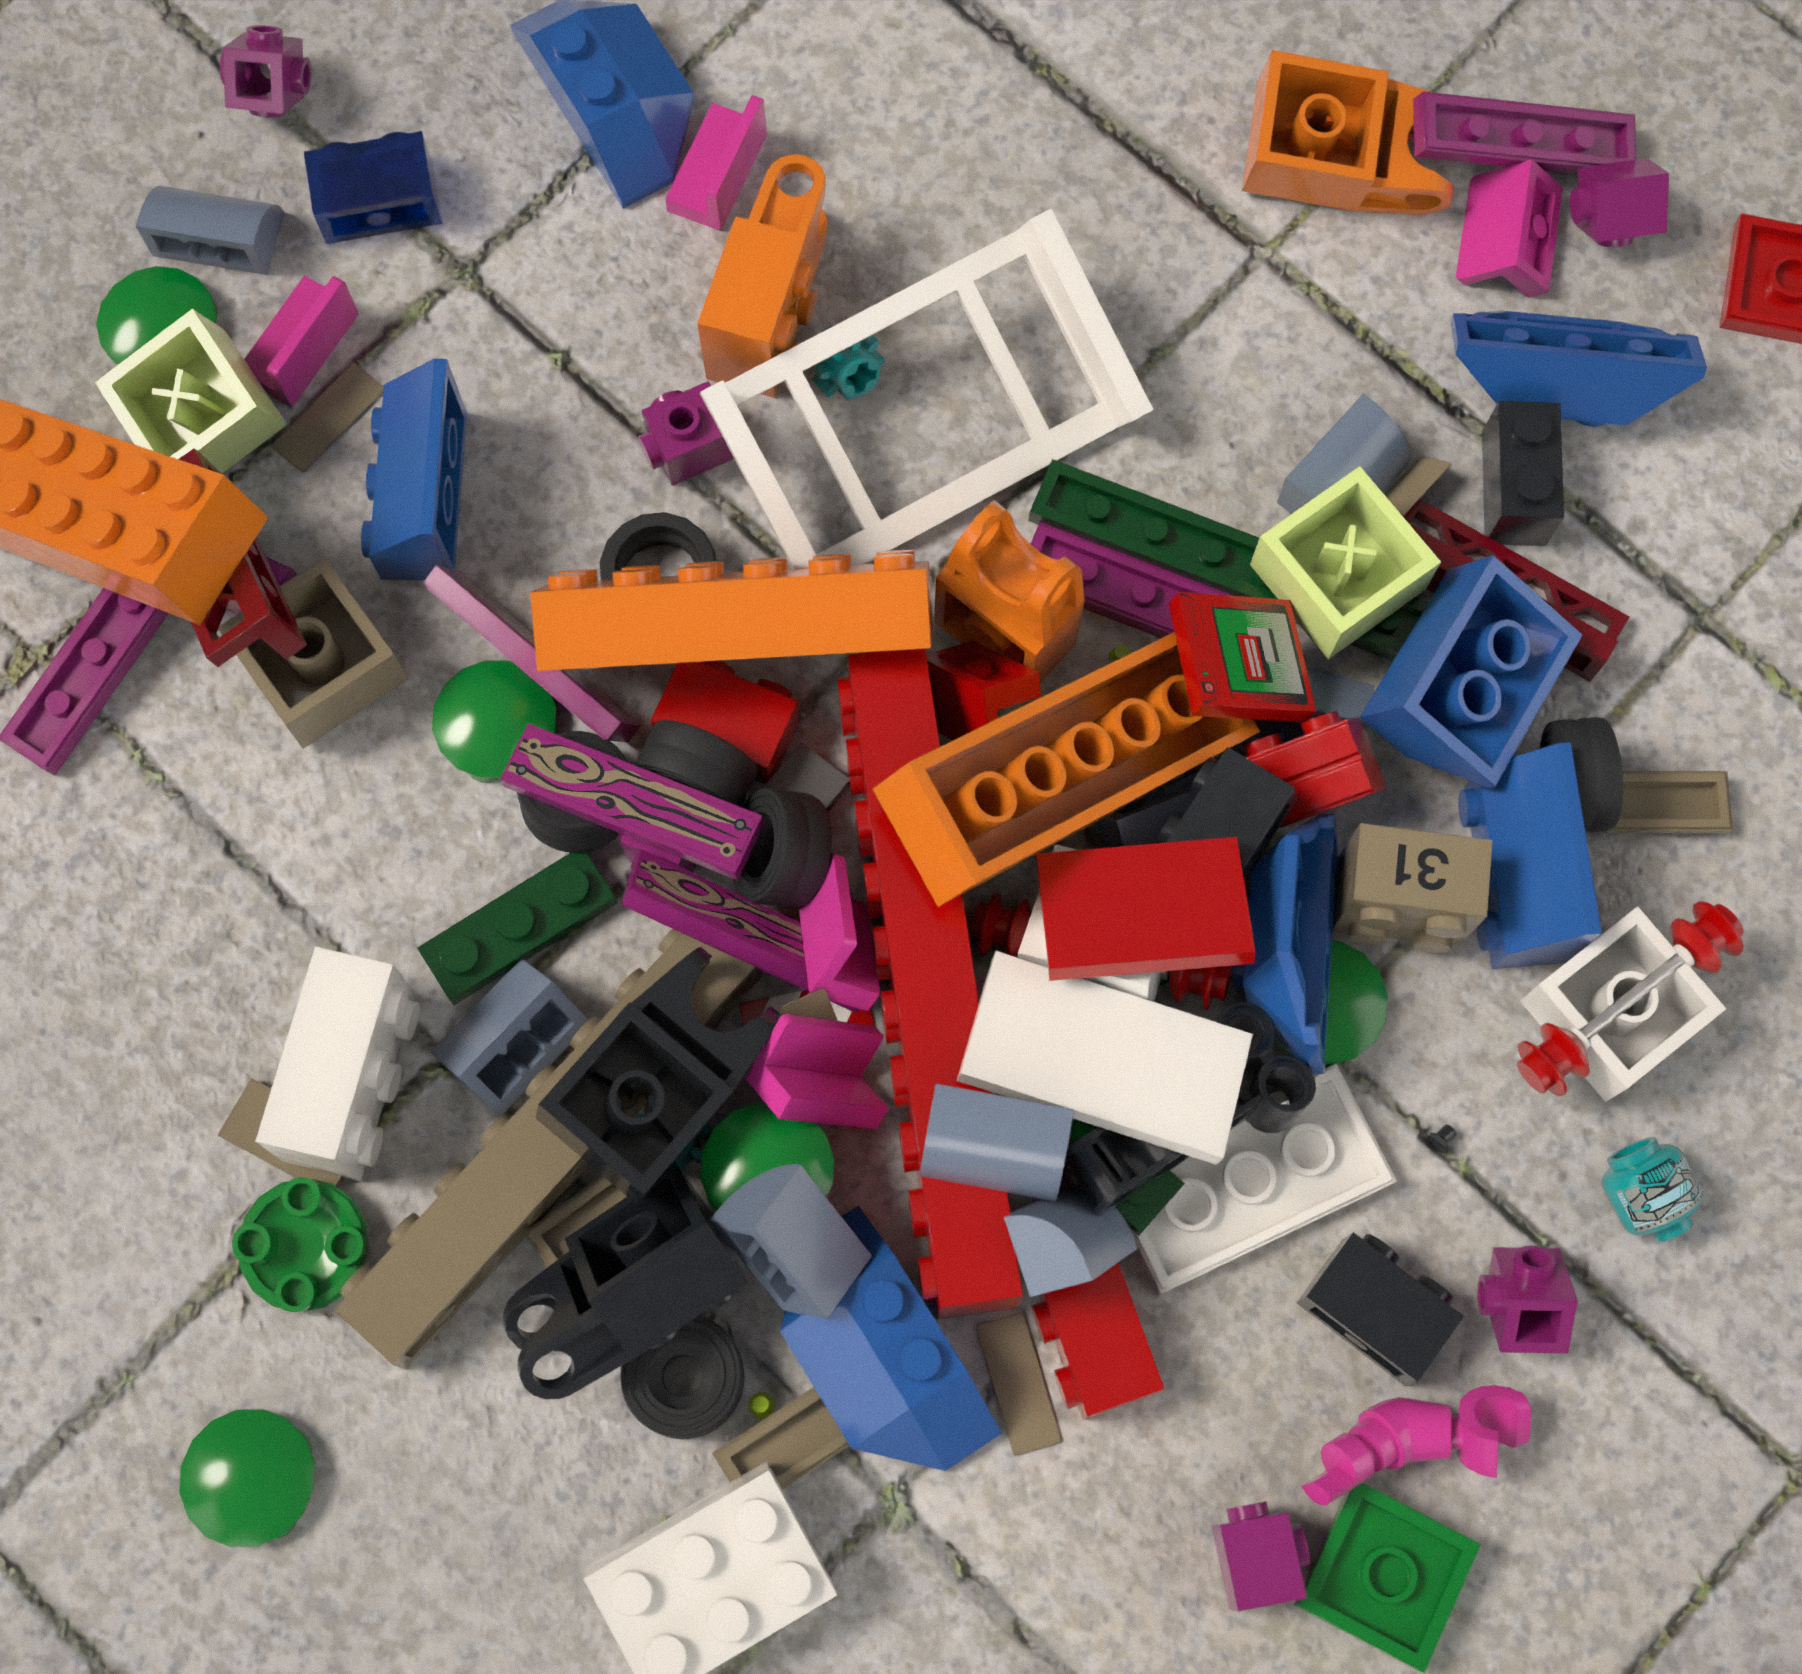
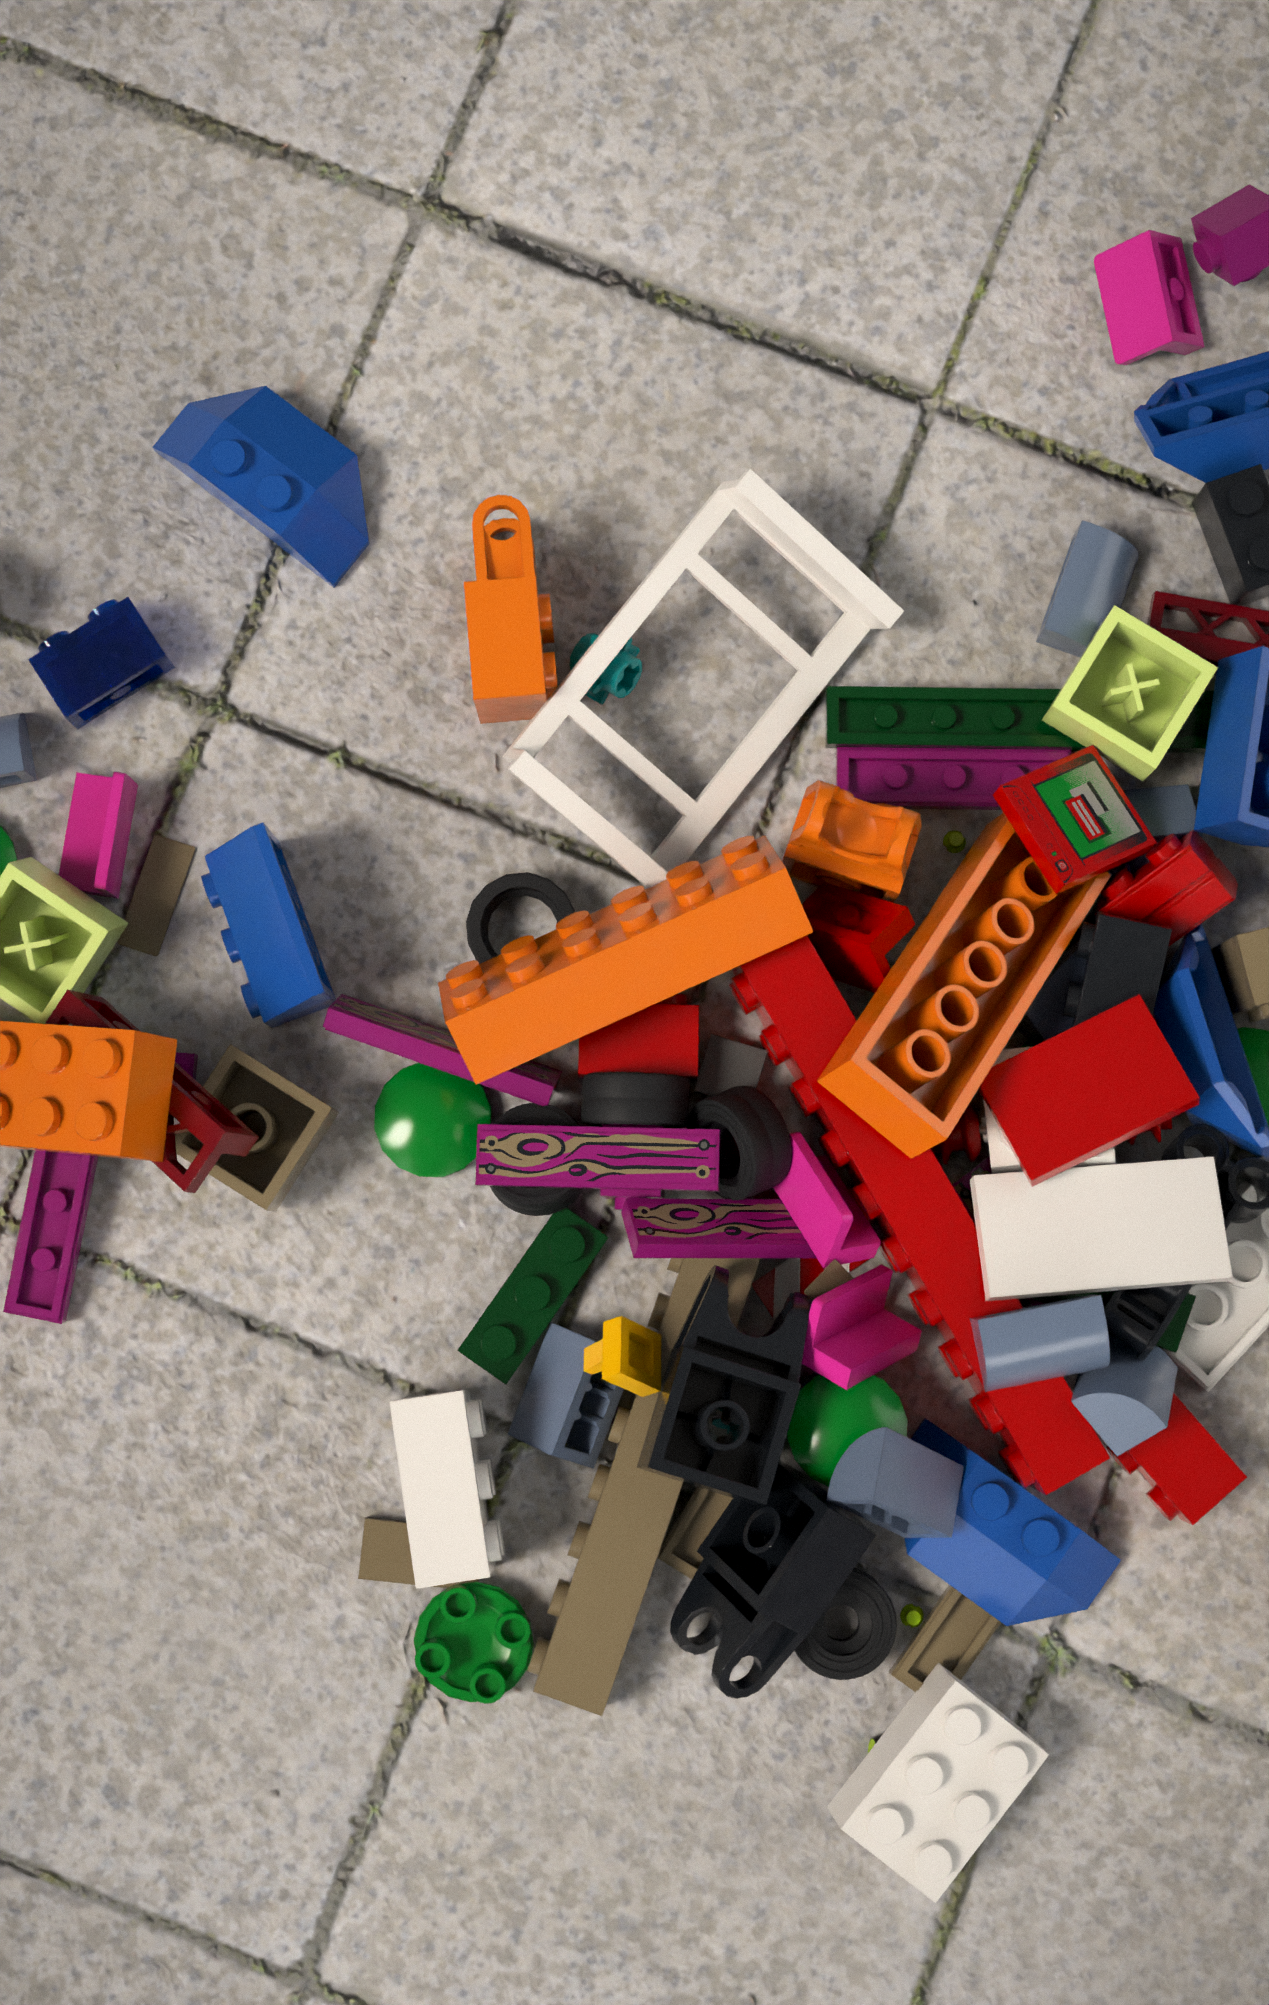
camera: 20 degrees left, 10 degrees up
(247, 1478) = (514, 1850): green dish -> none
(575, 1004) = (627, 1356): none -> yellow tile
(682, 435) = (486, 791): magenta brick -> none
(718, 163) = (404, 513): dark pink panel -> none
(1018, 1384) = (1120, 1516): dark tan sticker -> none
(1338, 139) = (988, 264): orange brick -> none
(1416, 482) = (1151, 583): dark tan sticker -> none
(1515, 132) = (1130, 205): magenta tile -> none

